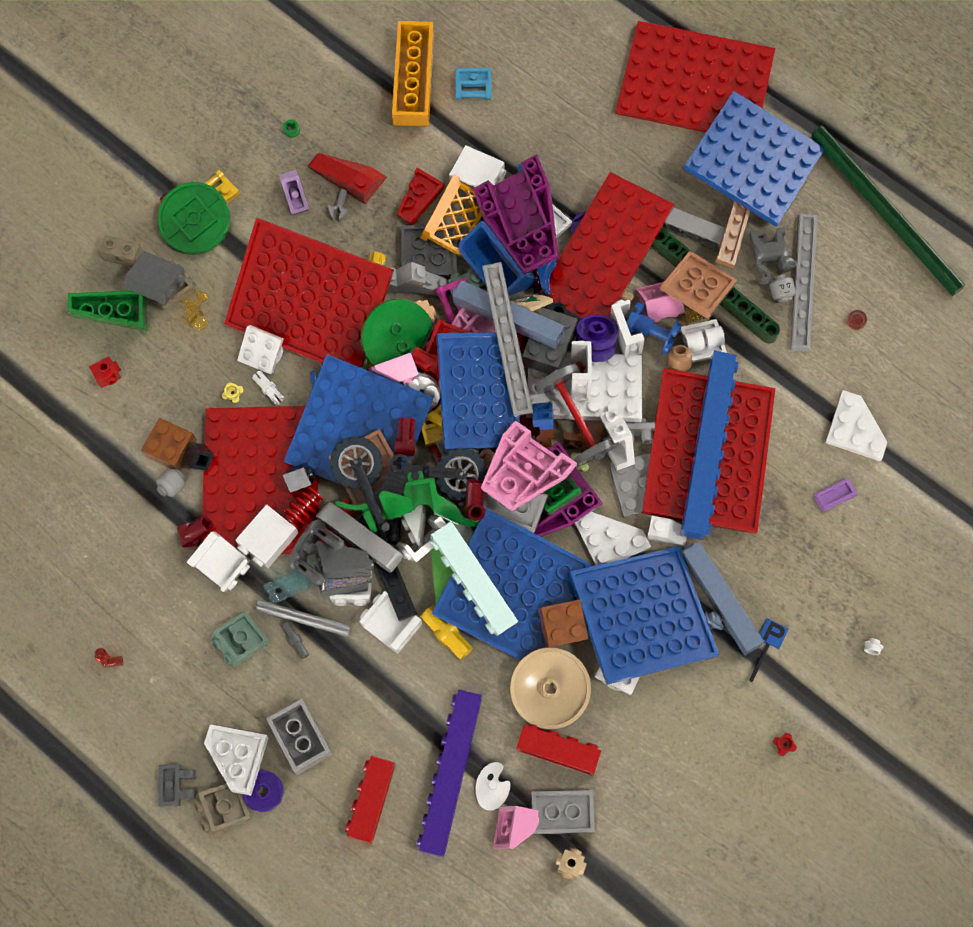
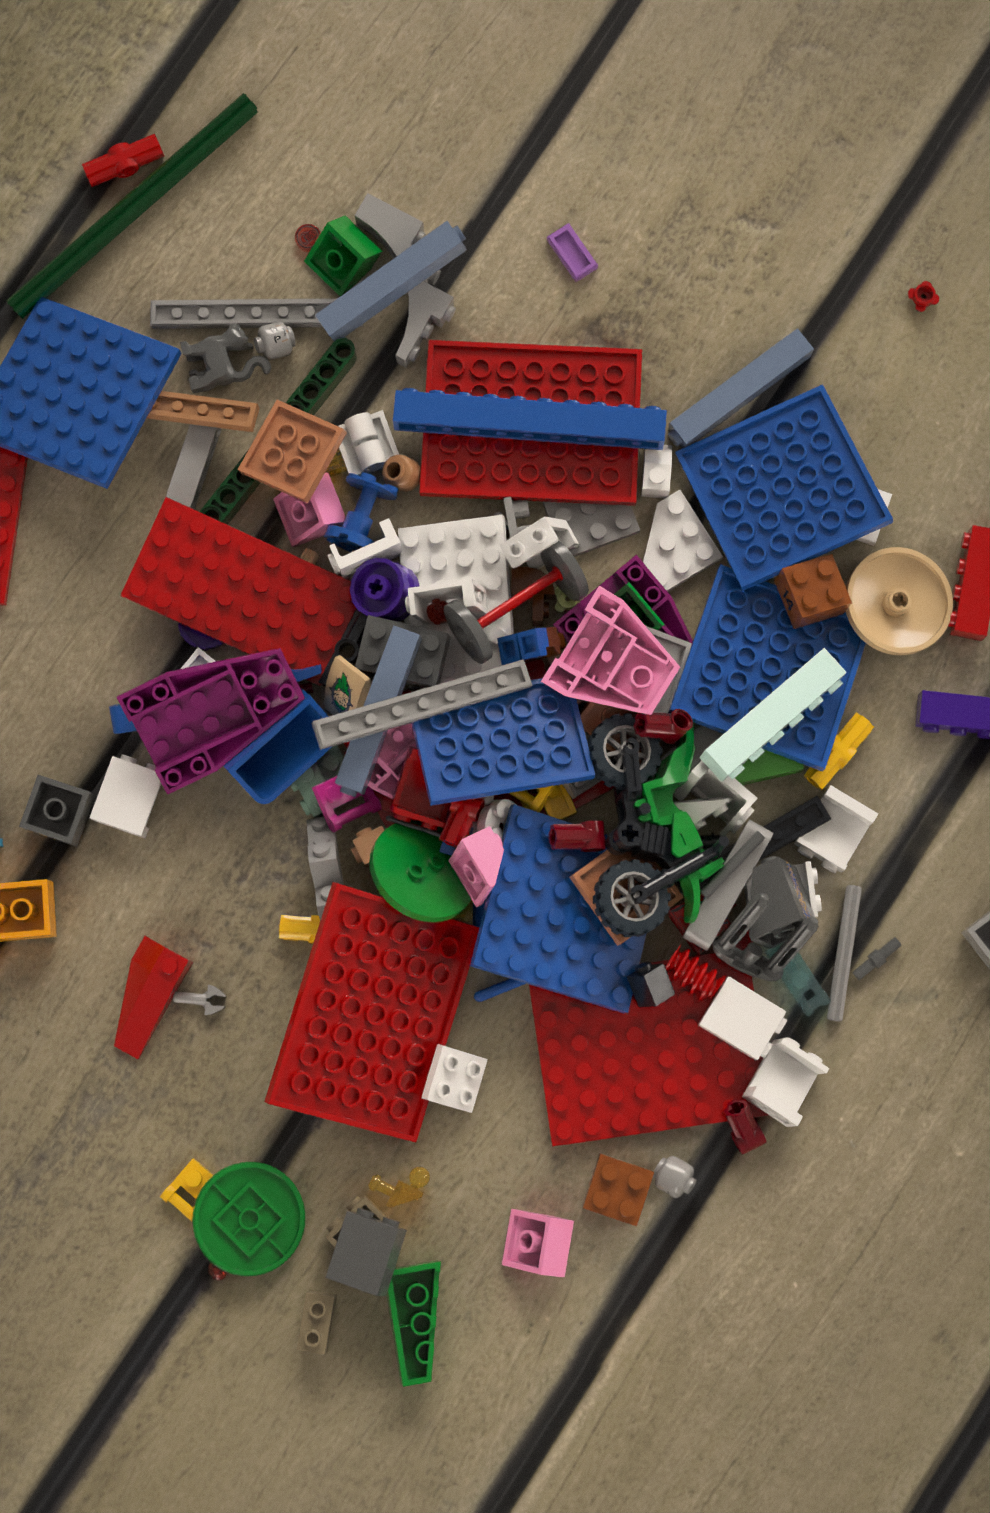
camera: 95 degrees left, 10 degrees up
(106, 372) = (514, 1307): red brick -> none
(106, 660) = (943, 1221): clear red arm -> none
(143, 391) = (537, 1243): none -> bright pink slope
(198, 456) = (633, 1140): black brick -> none
(232, 387) = (527, 1117): light yellow plate -> none
(238, 639) = (890, 1036): sand green plate -> none
(268, 388) = (509, 1058): white pin -> none
(291, 133) = (85, 1094): green bush -> none
(293, 191) = (186, 1072): lavender slope -> none
(371, 537) = (732, 864): none -> dark grey bar
(421, 194) = (174, 878): red wing -> none
(428, 253) = (265, 852): dark grey plate -> none
(440, 212) = (205, 842): light orange fence -> none
(473, 127) = (57, 810): none -> dark grey brick
(714, 620) = (772, 396): sand blue plant -> none
(773, 635) = (778, 323): piece -> none
(818, 363) = (392, 281): none -> sand blue brick
(826, 386) = (426, 303): none -> light grey arch
(842, 339) = (342, 255): none -> green slope
(855, 428) = (483, 224): white plate -> none
(873, 646) = (778, 192): white plate -> none
(919, 206) = (123, 160): none -> red piece

